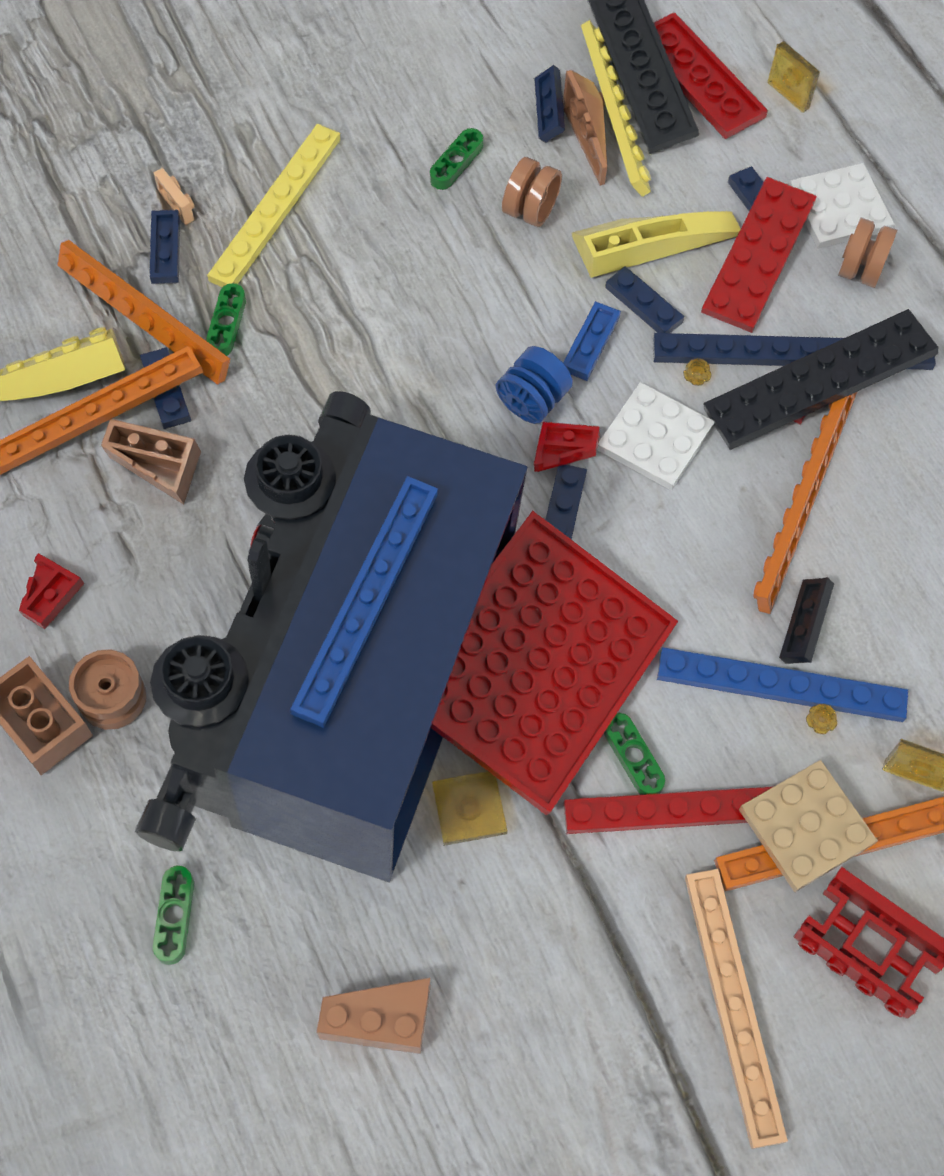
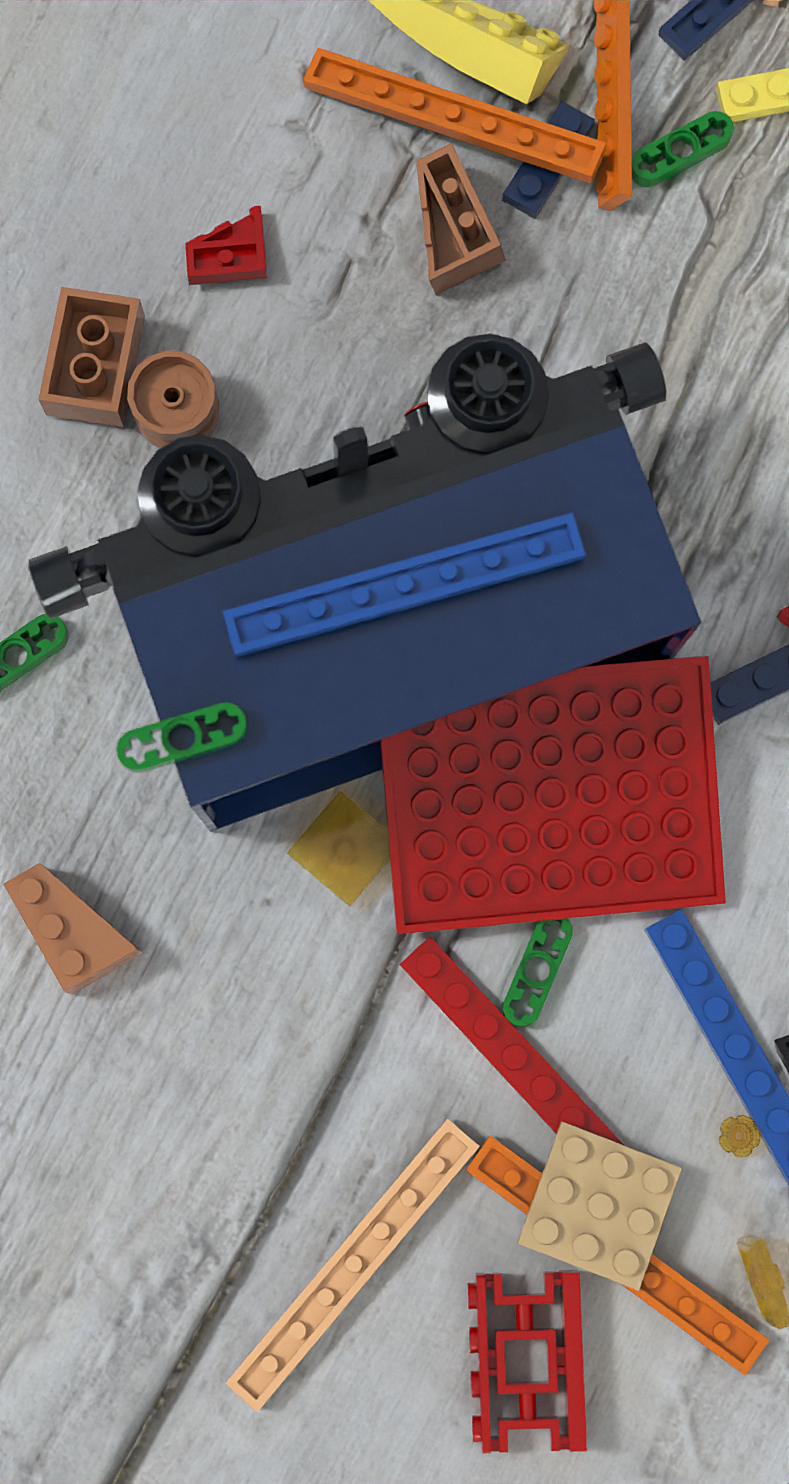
camera: 55 degrees right, 15 degrees up
(325, 818) = (152, 757): none -> green beam

